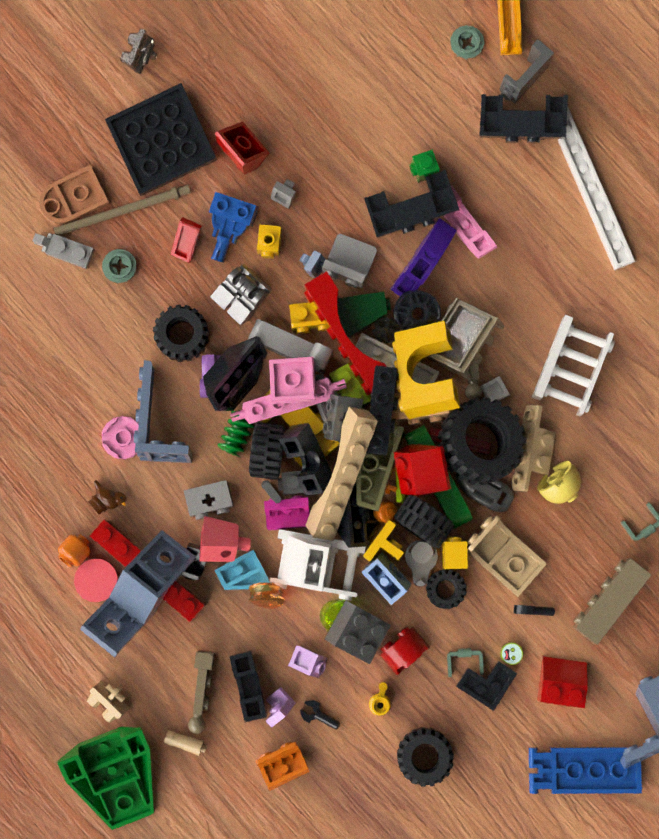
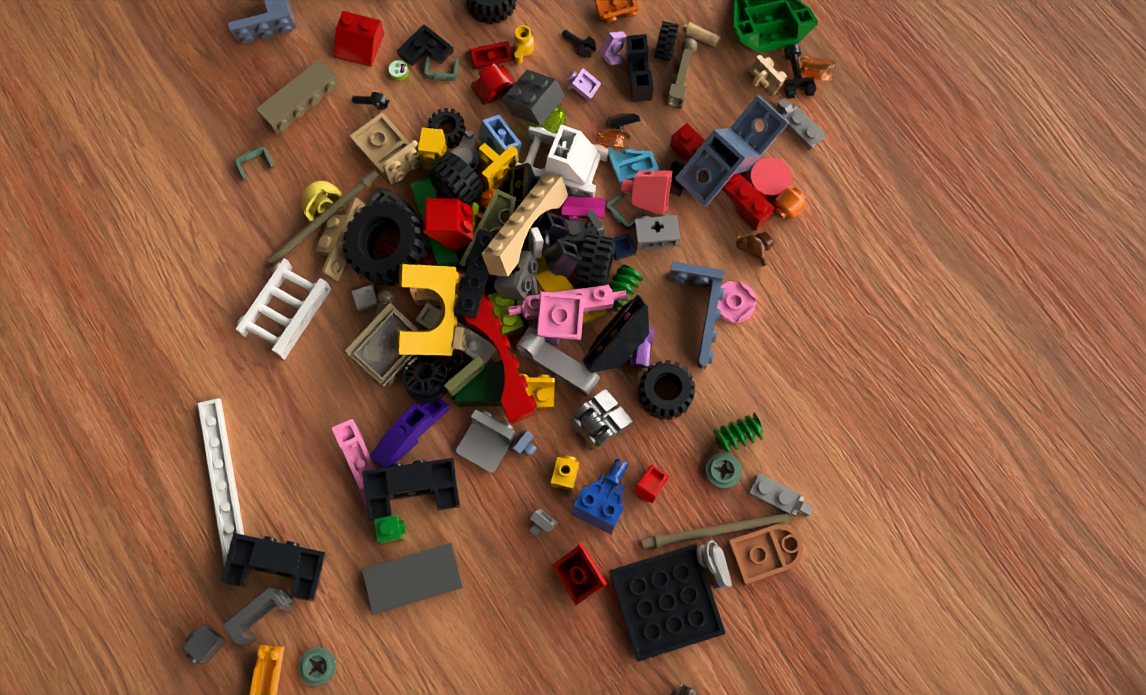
camera: 175 degrees left, 10 degrees down
(54, 714) = (817, 68): none -> clear orange piece
(68, 647) = (800, 124): none -> light grey hinge
(82, 687) = (792, 53): none -> black bar
(106, 301) = (738, 432): none -> green piece
(120, 178) = (715, 560): none -> light grey piece
(222, 723) = (666, 40): none -> black tyre
(242, 481) = (624, 247): none -> dark blue tile
(252, 514) = (617, 216): none -> sand green piece
(259, 621) = (622, 119): none -> black piece
(328, 458) = (535, 242): none -> white tile
(377, 312) = (464, 376): none -> olive tile
(389, 351) = (460, 339): none -> tan tile
(396, 127) = (412, 578): none -> dark grey tile
(414, 688) = (491, 54): none -> red slope
(517, 507) = (365, 182): none -> dark tan bar
(572, 45) = (203, 644): none -> dark grey brick

